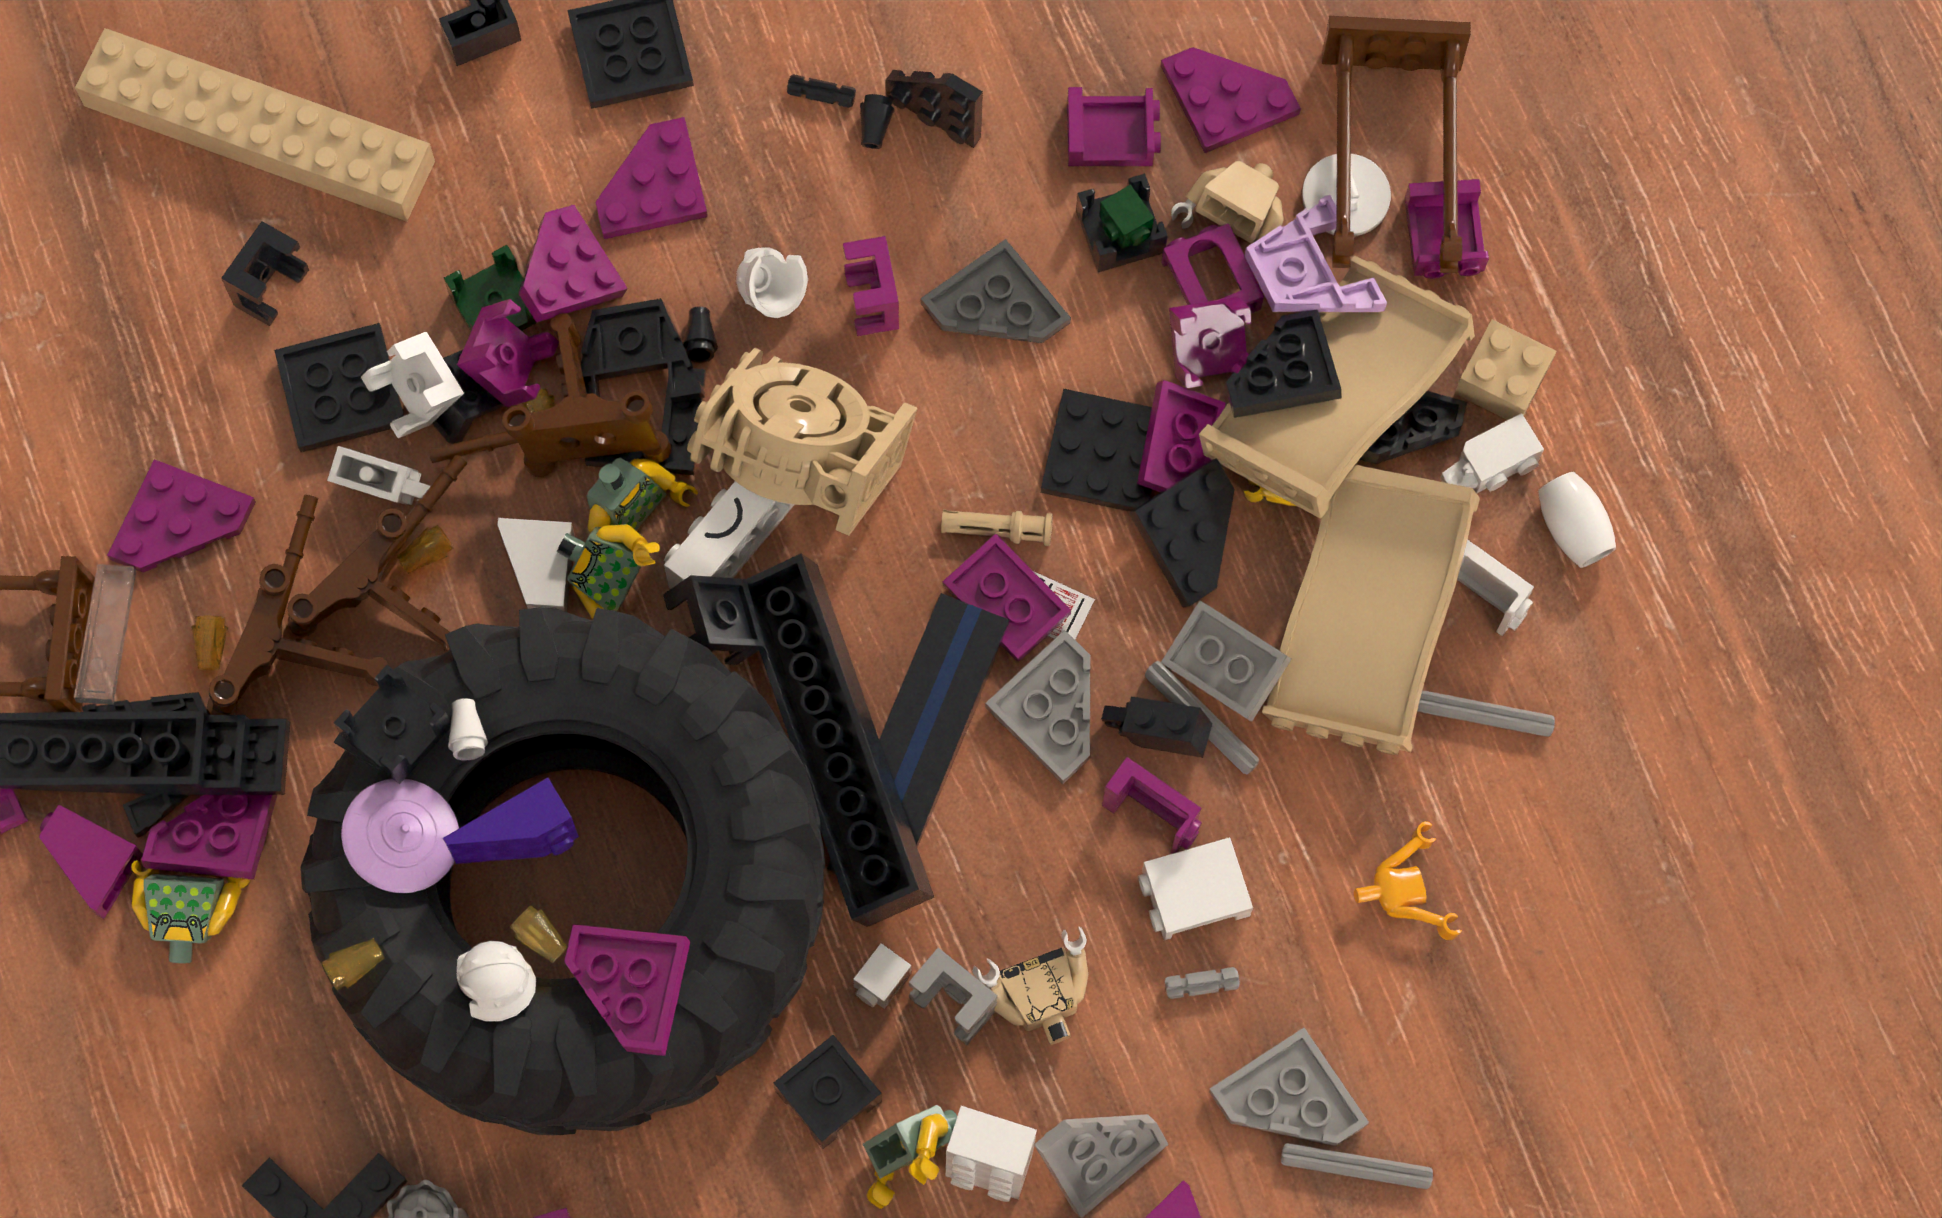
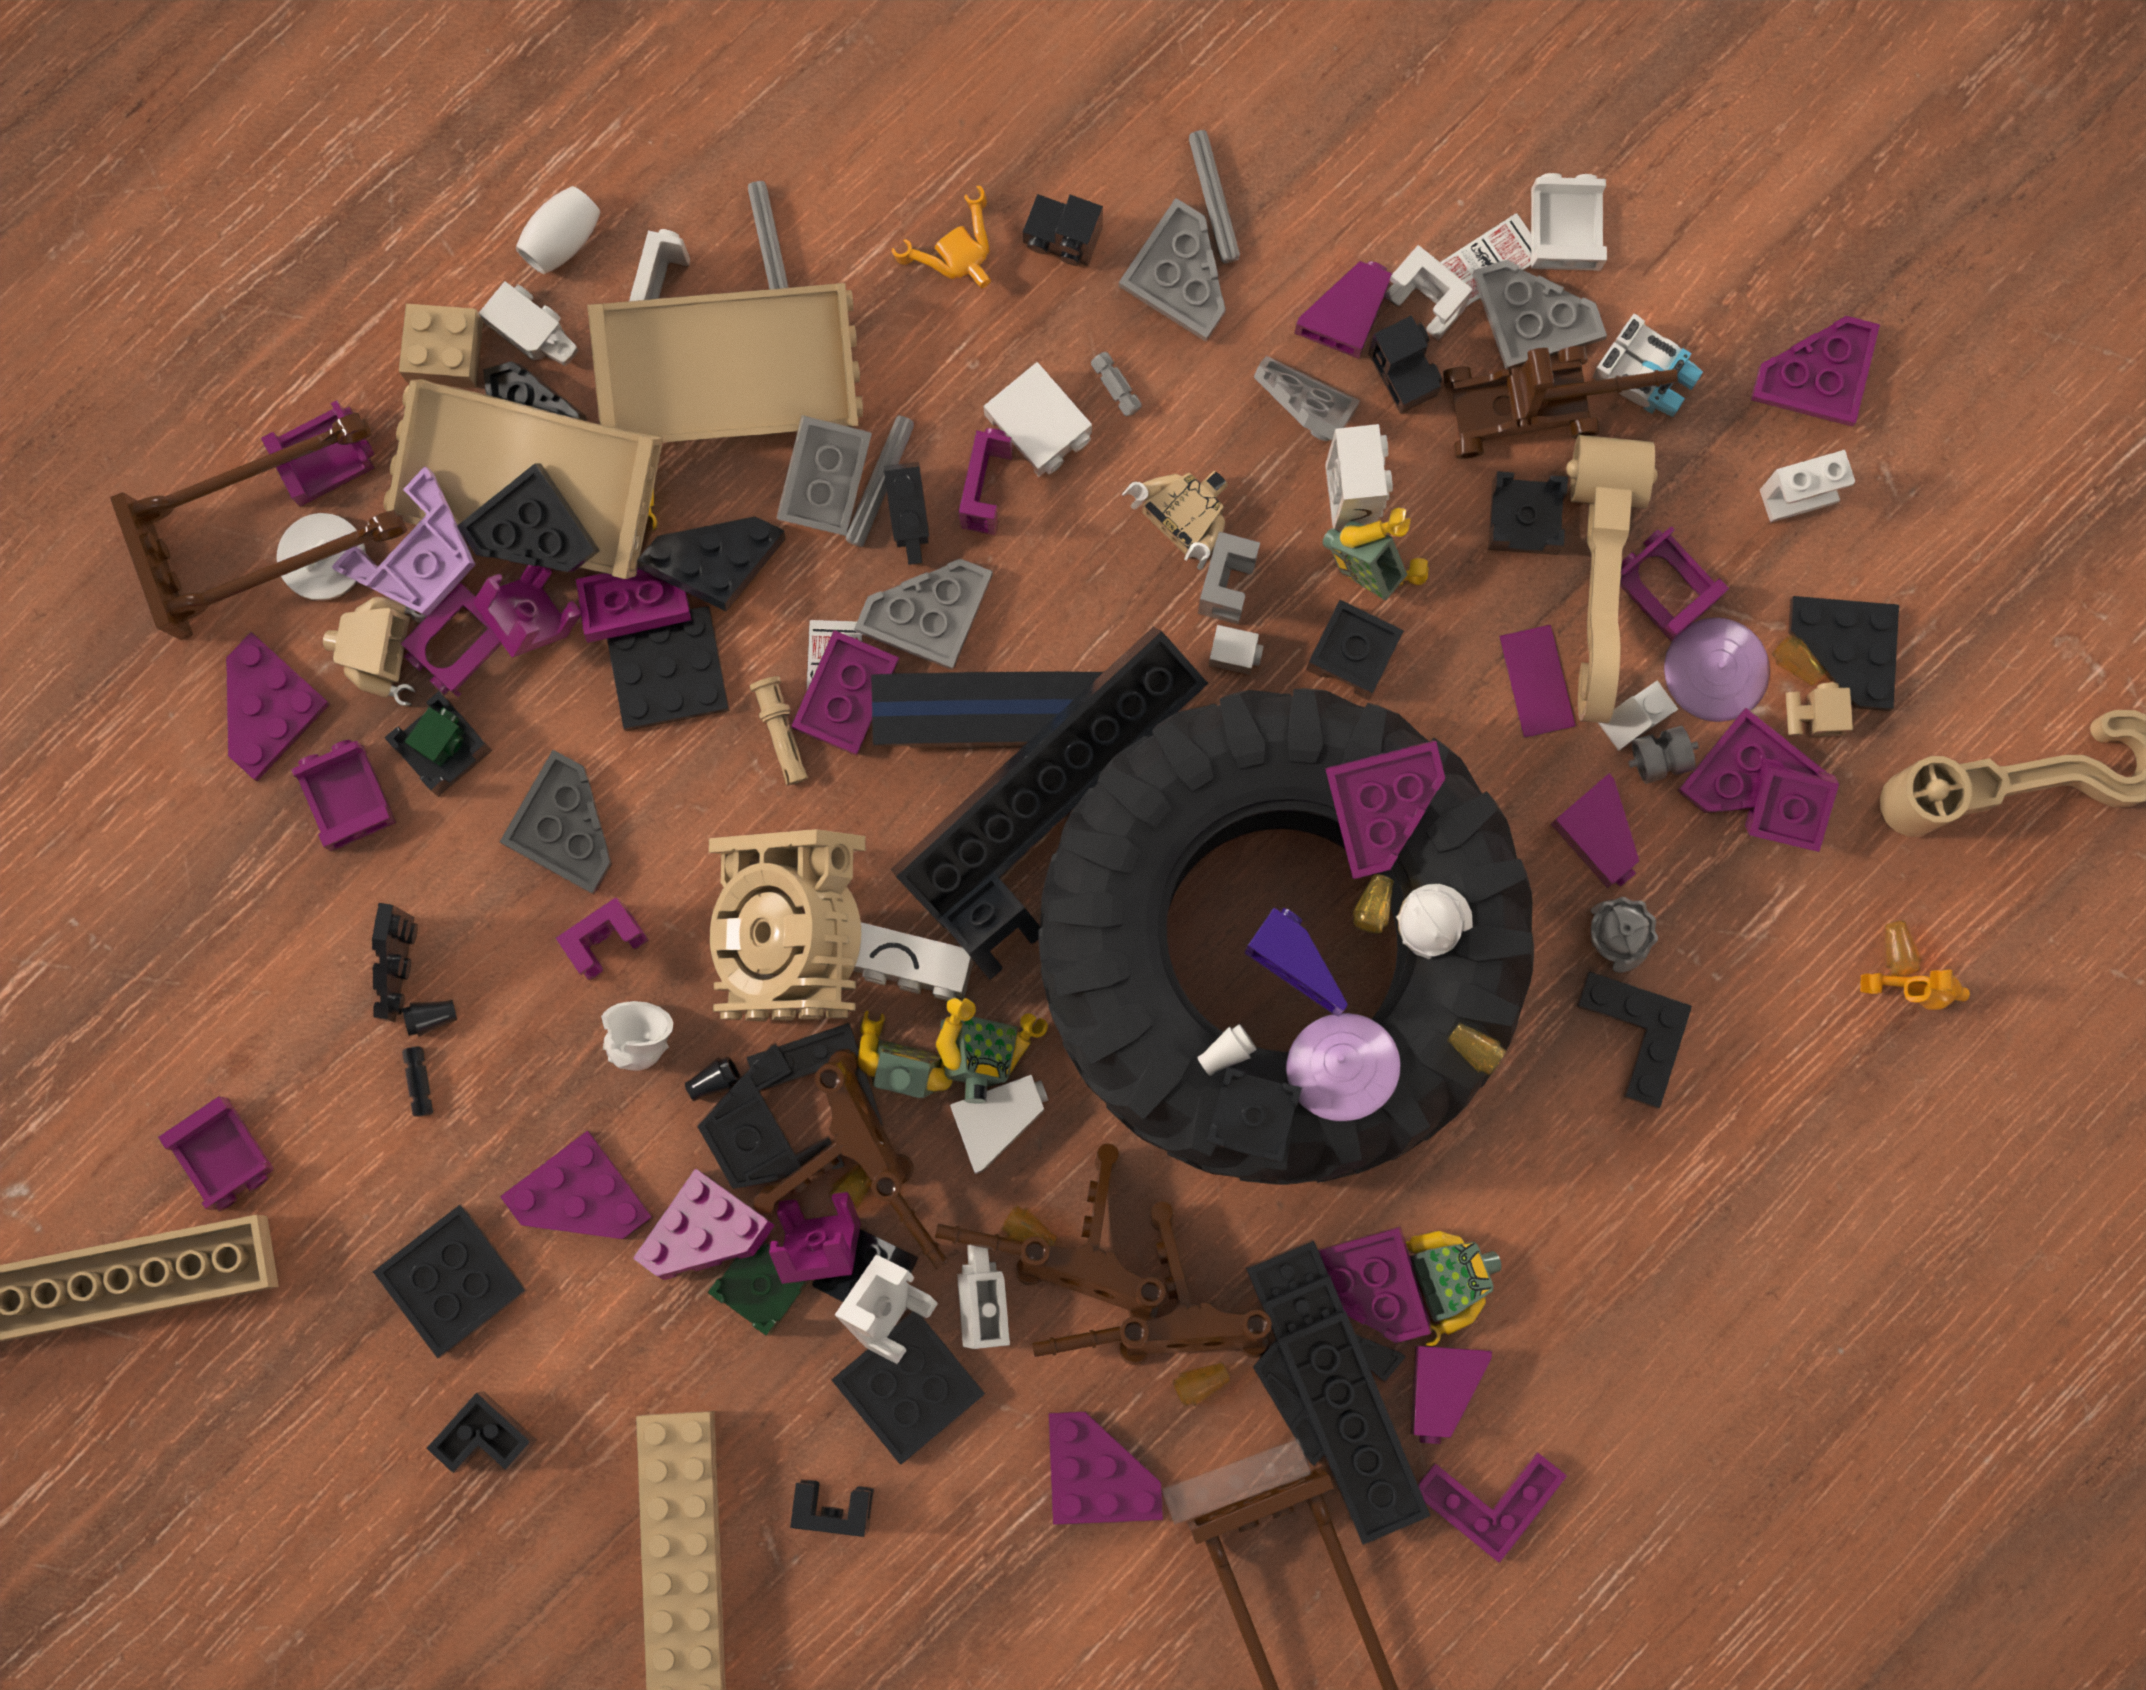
camera: 110 degrees left, 10 degrees up
(1380, 996) = (1064, 228): none -> black brick

